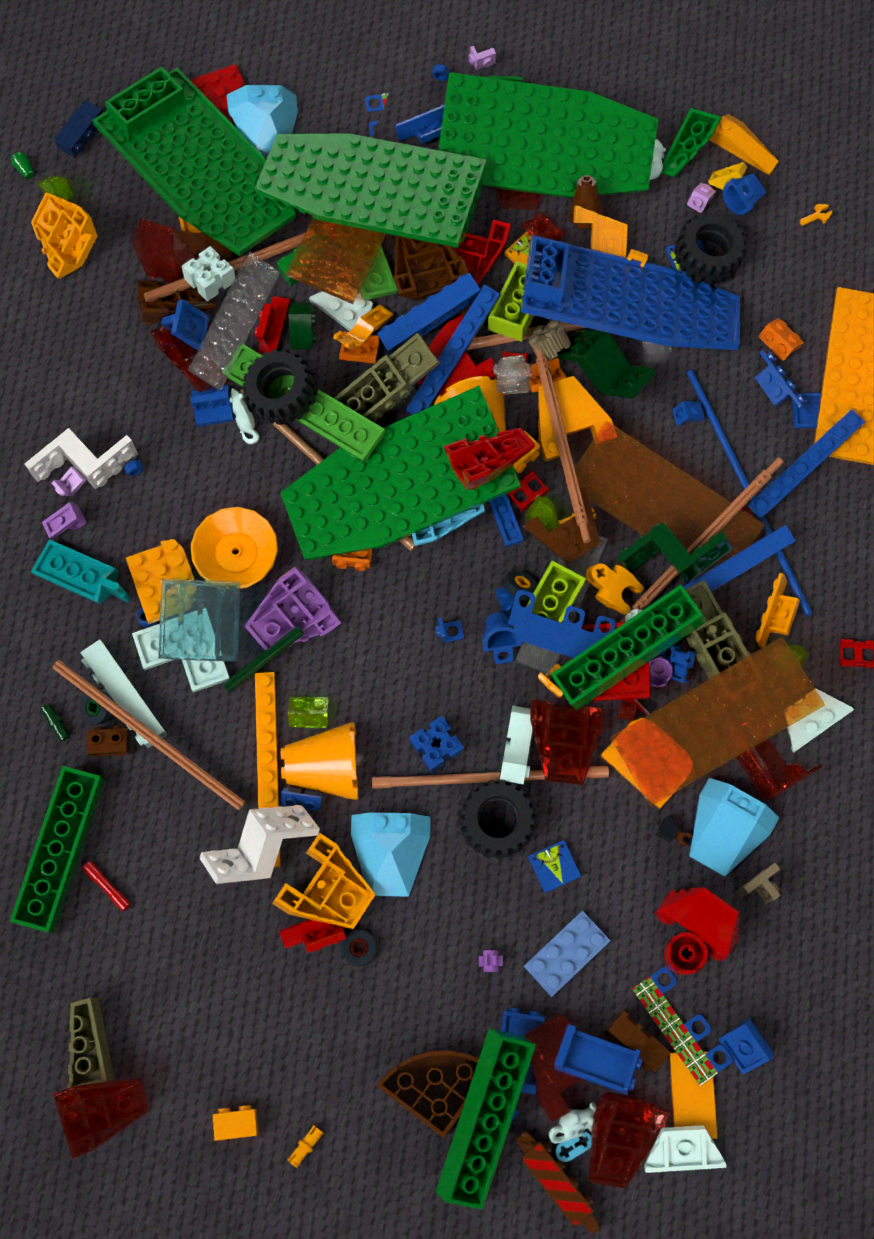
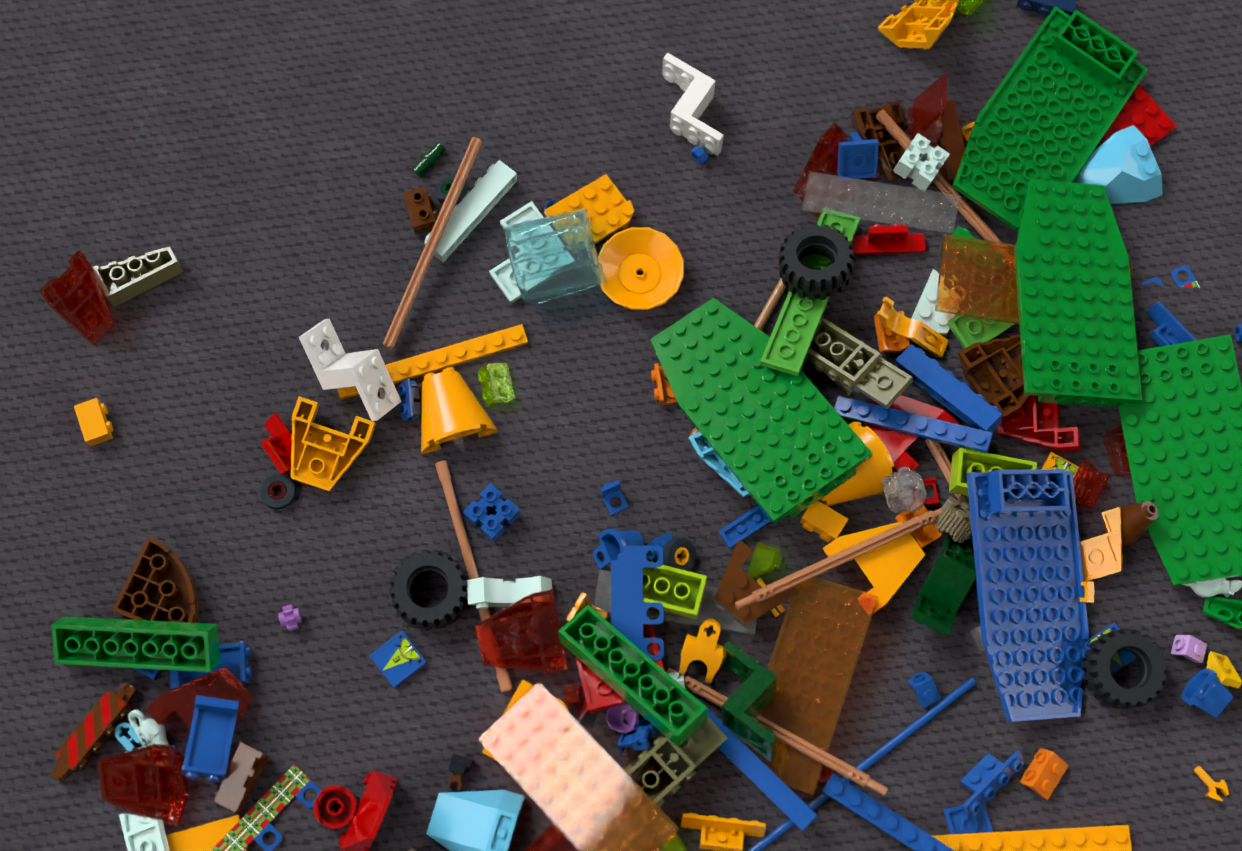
camera: 75 degrees right, 0 degrees up
(57, 850) = (308, 196): green brick -> none
(65, 518) = (631, 110): medium lavender plate -> none
(69, 483) = (664, 101): lavender bracket -> none
(78, 573) = (577, 136): teal hinge -> none
(98, 877) = (293, 239): red piece -> none
(212, 406) = (786, 209): blue bracket -> none
(244, 417) = (775, 243): light aqua animal -> none
(263, 659) = (537, 327): dark green axle -> none
(291, 604) = (589, 340): medium lavender wedge -> none
(301, 322) = (897, 267): dark green brick -> none
(305, 1146) = (85, 489): light orange pin -> none
(390, 849) = (377, 497): medium azure wedge -> none
(487, 458) = (791, 476): red wedge -> none
(531, 496) = (789, 534): red piece -> none
(566, 953) = (315, 691): medium blue plate -> none

